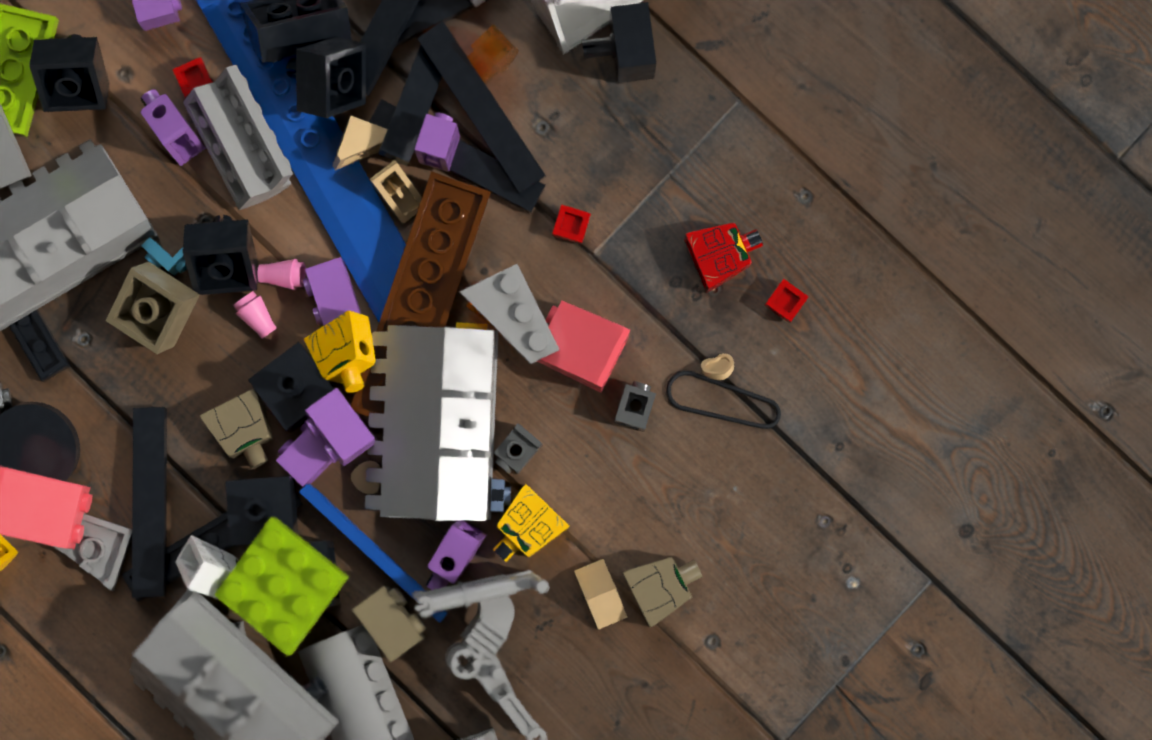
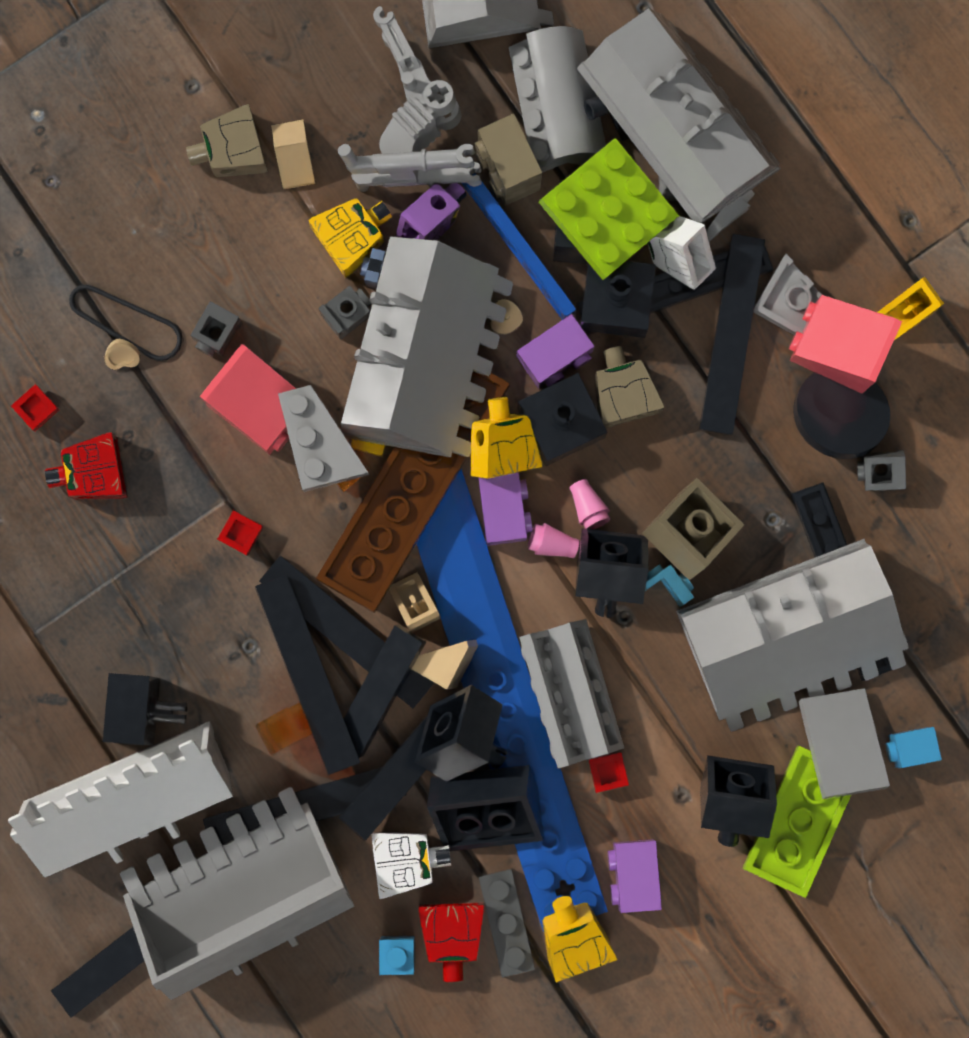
camera: 170 degrees left, 0 degrees up
(170, 127) = (637, 710): medium lavender torso -> none
(338, 427) = (521, 360): medium lavender brick -> none
(437, 141) = (359, 640): medium lavender brick -> none

